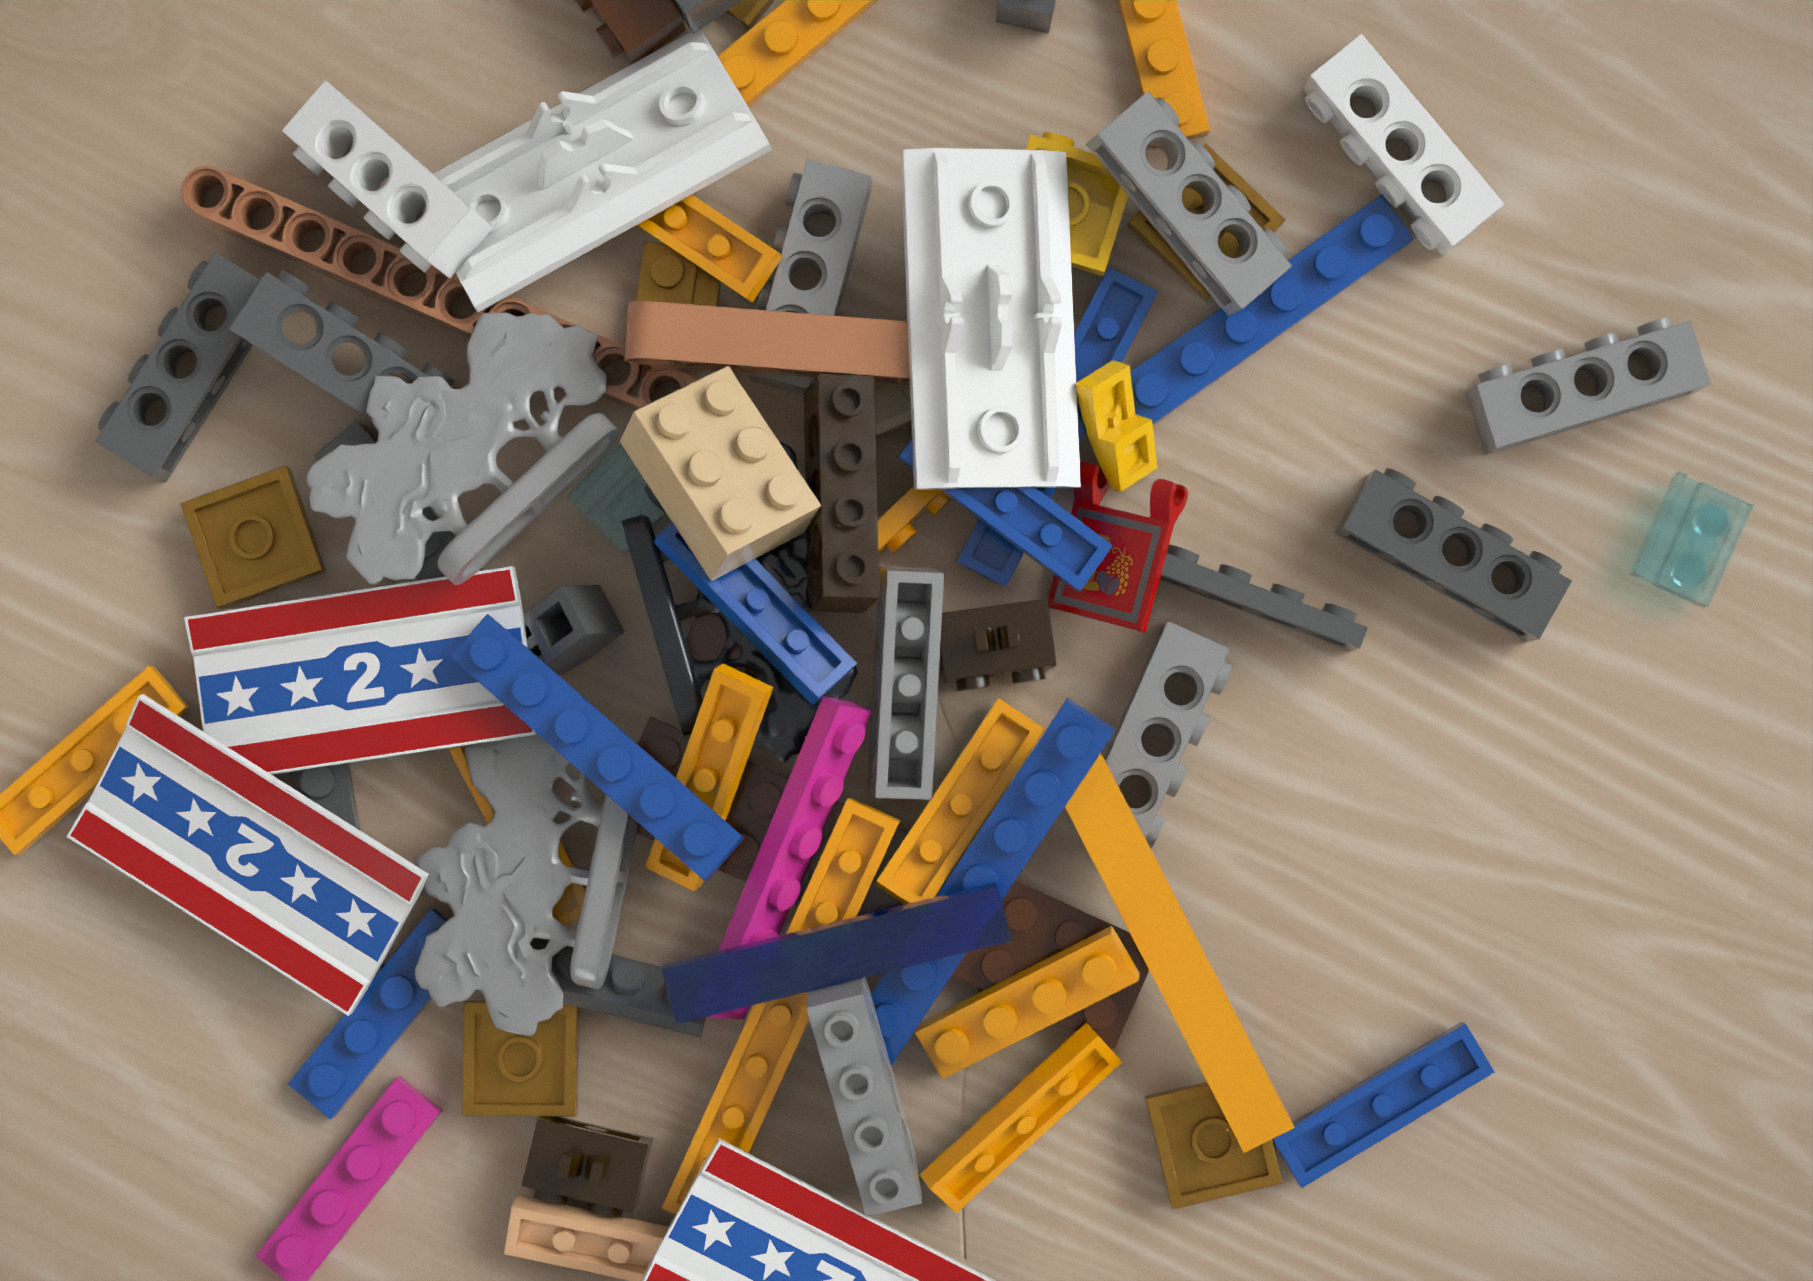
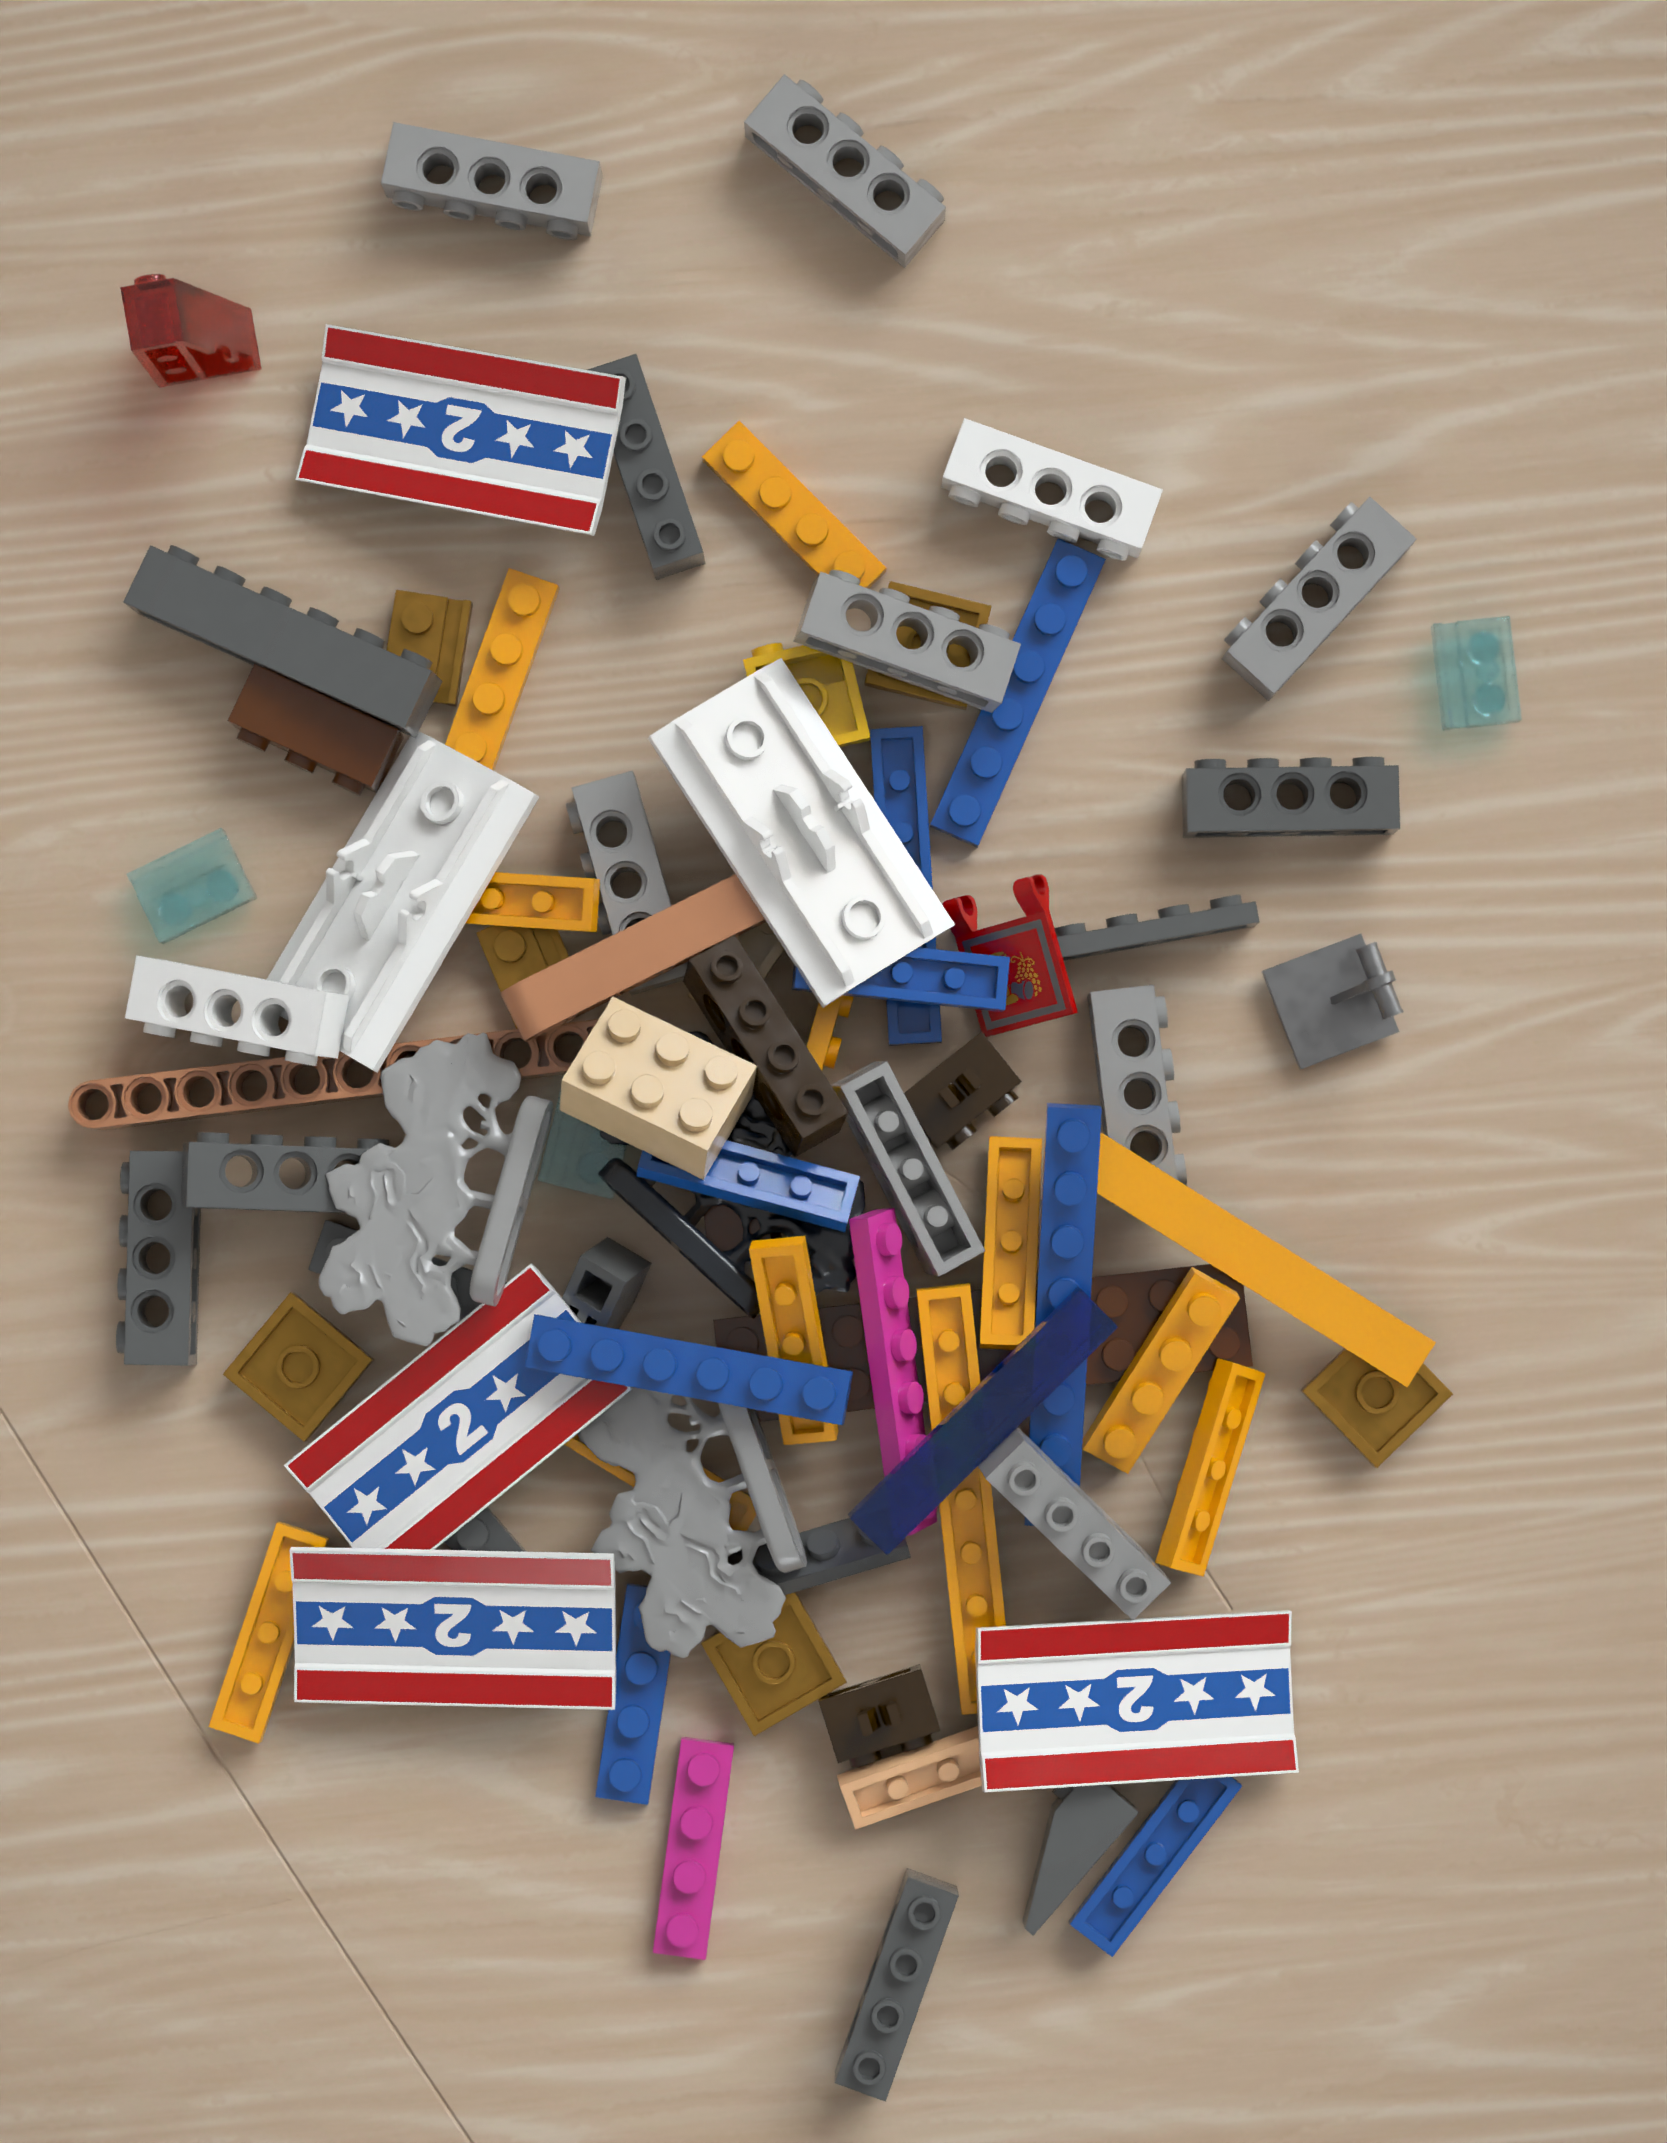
camera: 30 degrees left, 0 degrees up
(415, 50) = (191, 886): none -> clear light blue plate
(1117, 435) = (958, 863): yellow slope -> none
(1383, 1104) = (1496, 1281): blue plate -> none
(1386, 760) = (1334, 999): none -> flat silver plate

